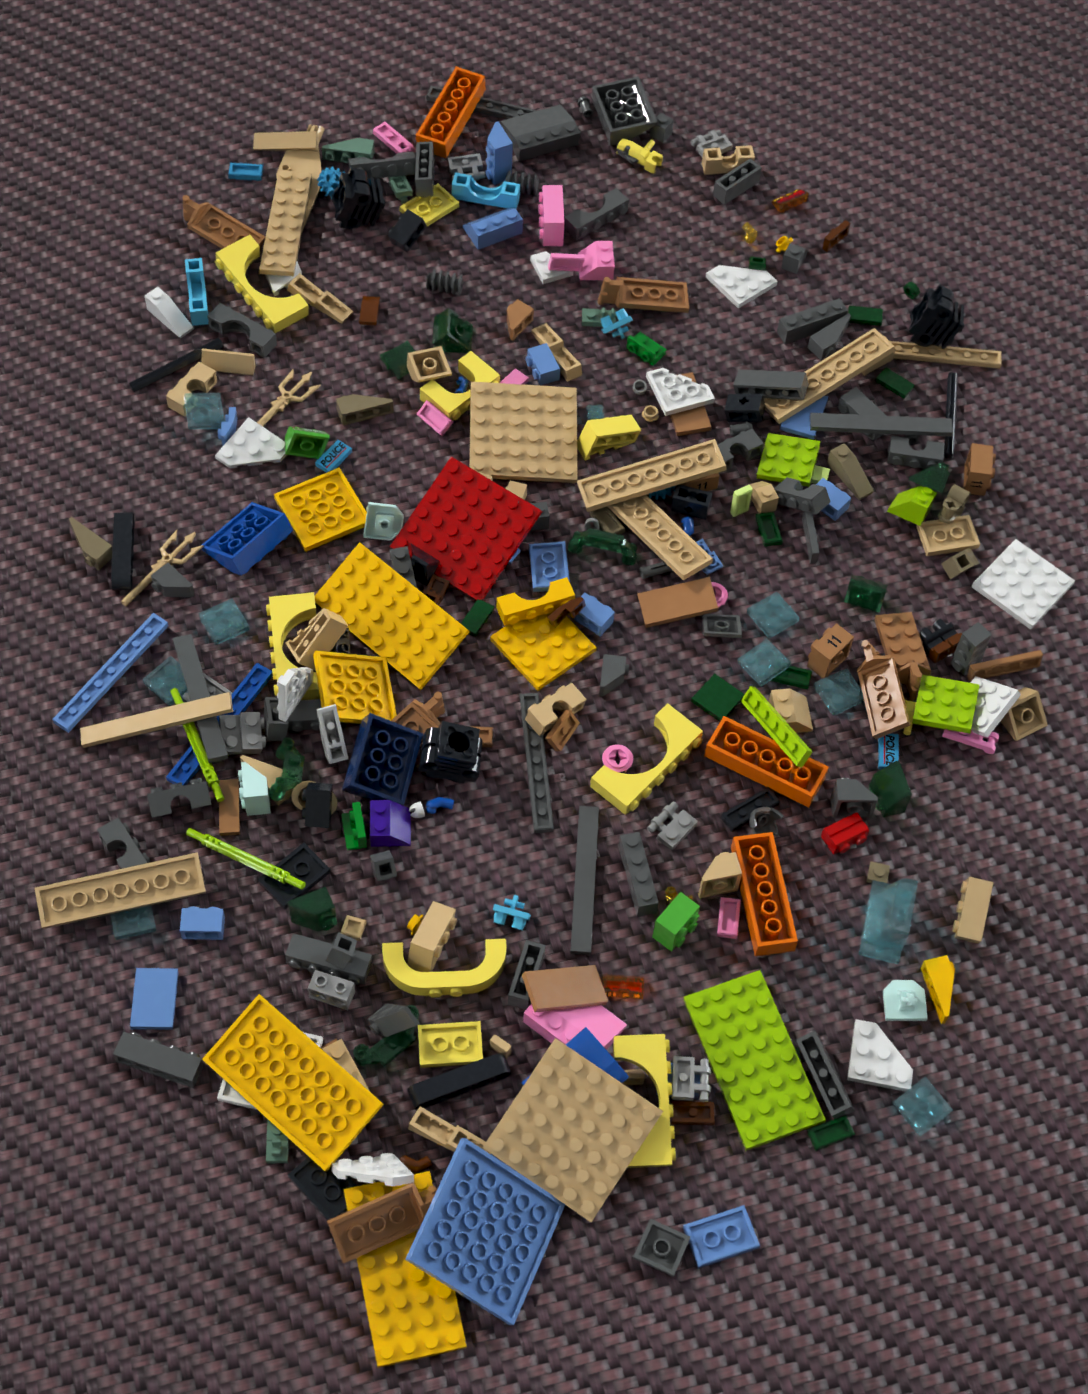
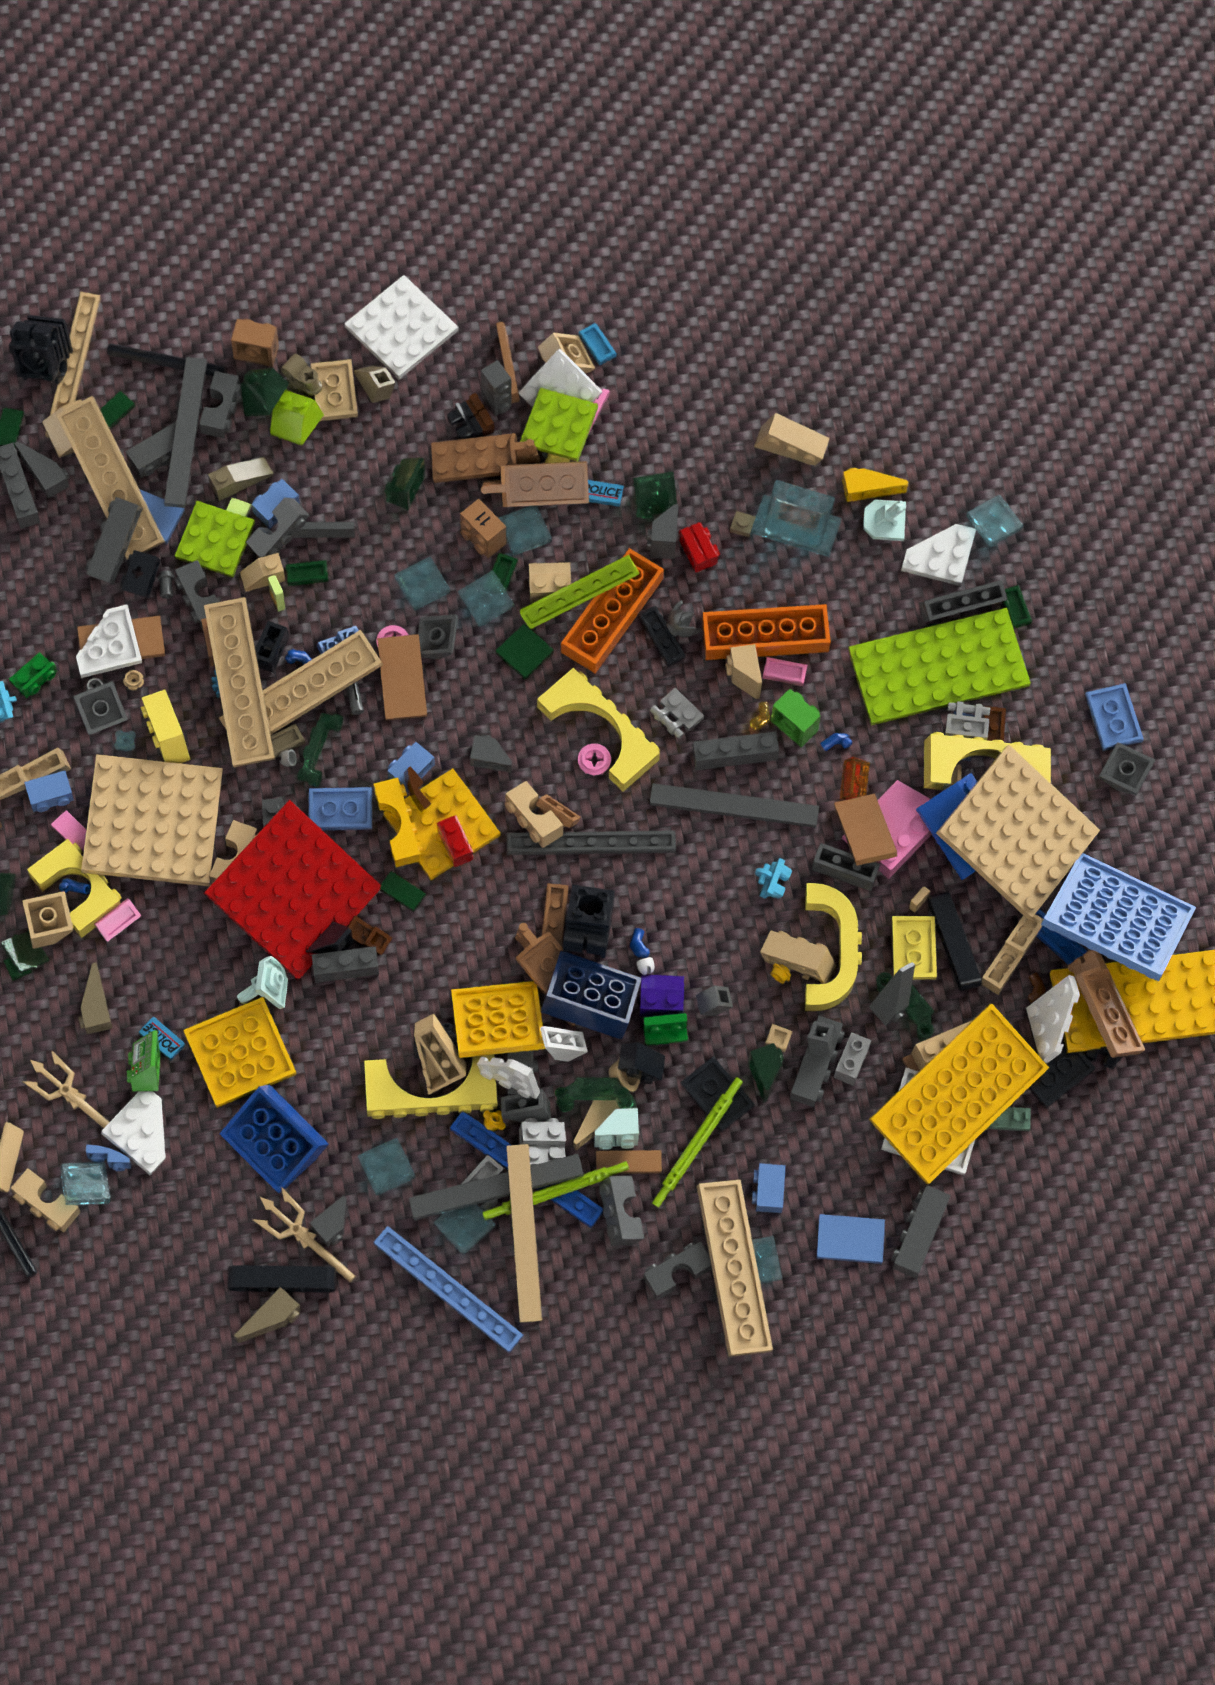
camera: 85 degrees left, 10 degrees up
(260, 695) = (493, 1125): none -> yellow plate
(391, 615) = (401, 979): yellow plate -> none
(521, 645) = (455, 841): none -> red brick
(621, 392) = (100, 707): none -> dark grey slope
(662, 963) = (836, 738): none -> blue arm
(1042, 740) = (597, 344): none -> dark azure tile

